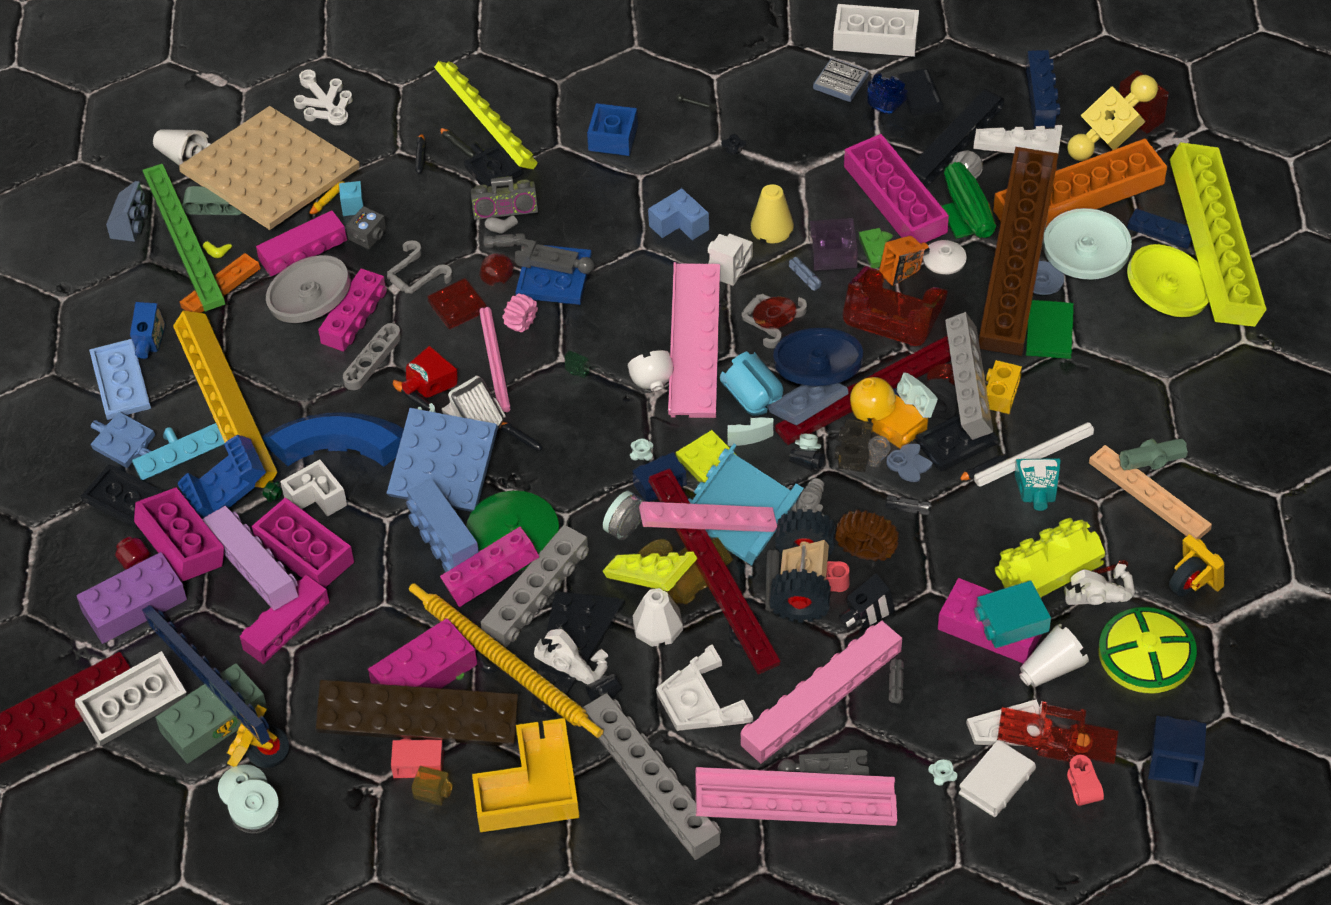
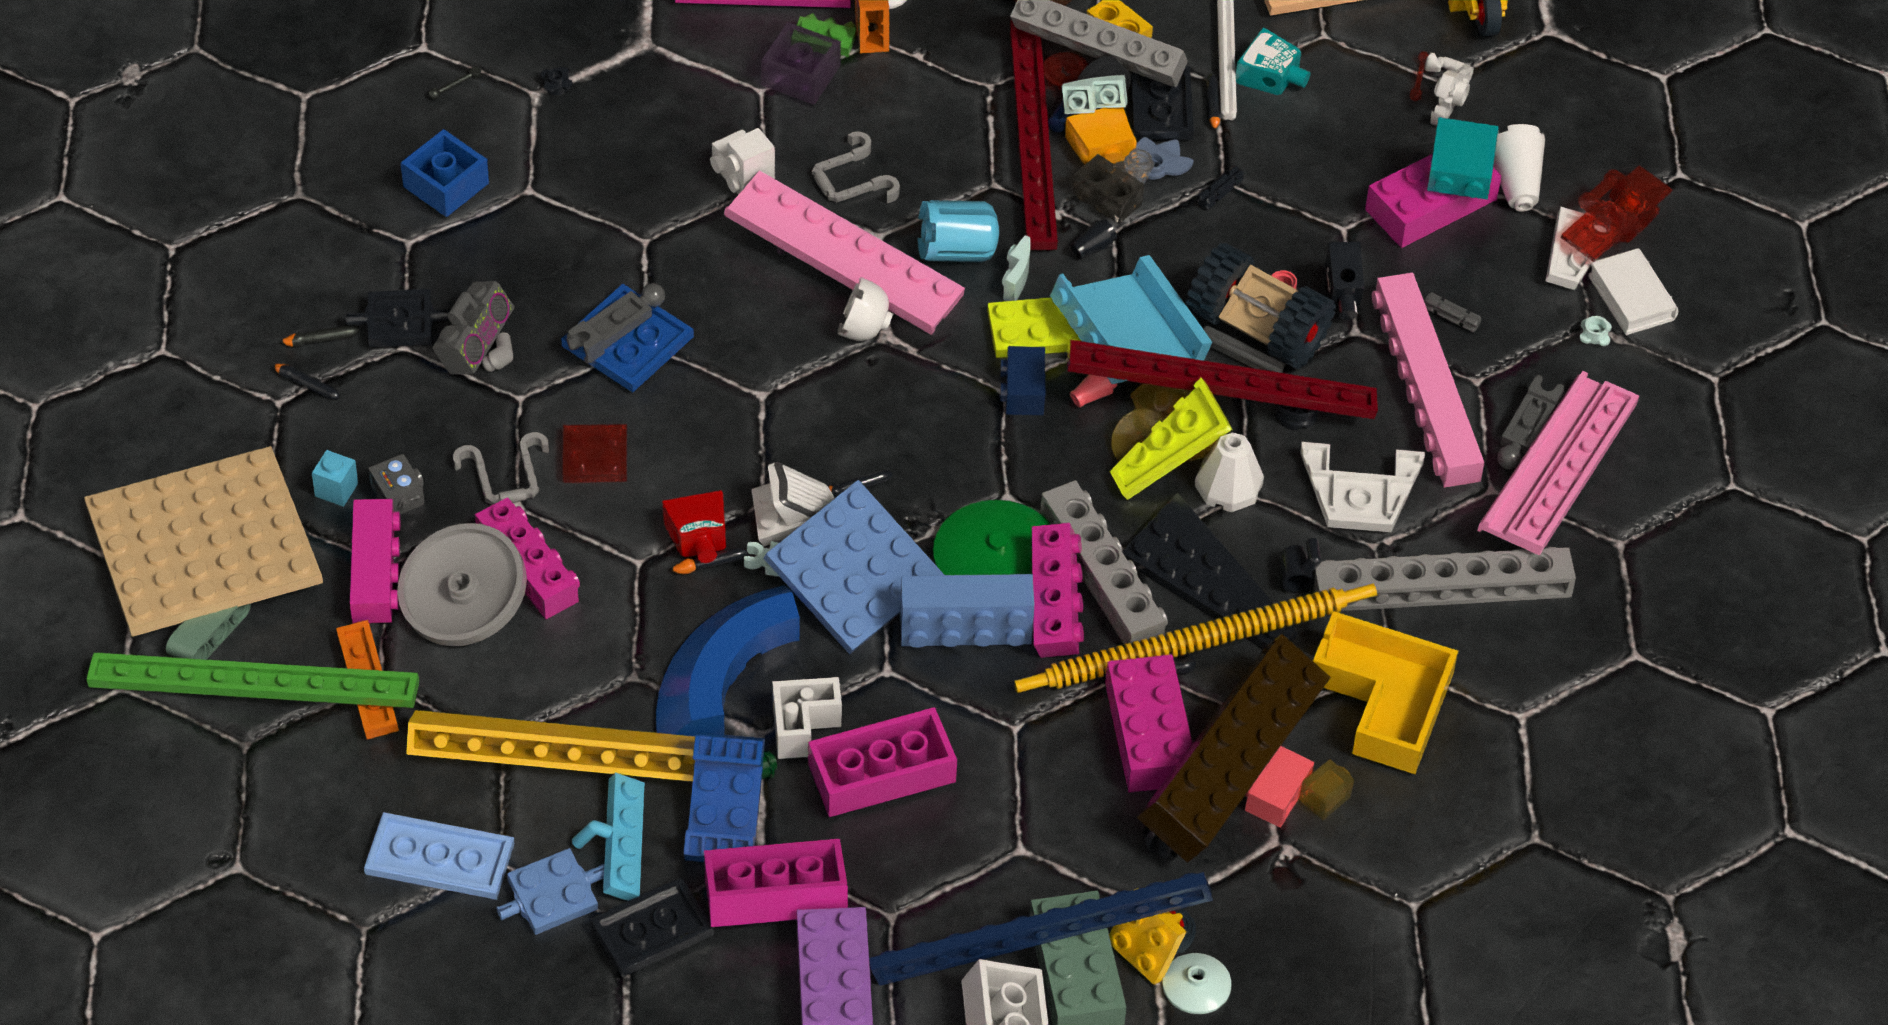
camera: 65 degrees left, 0 degrees up
(128, 213) = (159, 723): sand blue slope -> none
(131, 552) = (762, 951): dark red head -> none
(147, 328) = (392, 783): blue torso -> none
(180, 144) = (82, 618): white cone -> none
(214, 251) = (302, 657): neon yellow animal -> none
(251, 558) = (878, 818): lavender brick -> none
(253, 806) = (1245, 976): light aqua piece -> none
(278, 626) = (979, 832): dark pink brick -> none
(317, 206) = (308, 522): yellow piece -> none
(335, 114) = (122, 438): white plant -> none
(375, 358) = (611, 575): light grey beam -> none
(486, 115) = (290, 284): neon yellow plate -> none
(494, 359) = (701, 450): bright pink axle -> none
(496, 269) = (571, 390): clear red hair -> none
(503, 240) = (530, 361): dark grey axle -> none
(520, 312) = (674, 392): bright pink gear -> none
(567, 658) = (1245, 573): white animal -> none
(576, 364) = (793, 378): clear green plate -> none
(623, 515) = (1068, 432): clear piece -> none
(641, 450) = (967, 380): light aqua plate -> none
(677, 212) = (635, 173): medium blue brick -> none
(707, 516) = (1157, 343): bright pink plate -> none
(772, 216) = (711, 95): light yellow cone -> none
(774, 312) = (857, 155): clear red dish -> none
(805, 273) = (814, 113): sand blue axle -> none
(806, 401) = (1015, 194): sand blue tile -> none
(808, 441) = (1071, 227): light aqua plate -> none
(810, 497) = (1169, 266): light grey piece -> none
(818, 356) = (961, 155): dark blue dish -> none
(867, 535) = (1258, 228): reddish brown gear -> none
(872, 399) = (1069, 135): yellow cylinder -> none
(891, 312) = (941, 66): clear red windscreen -> none
(1053, 558) = (1394, 103): neon yellow brick -> none
(1083, 781) = (1686, 224): coral piece -> none
(1147, 650) = (1547, 91): neon yellow dish -> none
(1177, 751) = (1696, 129): dark blue slope -> none

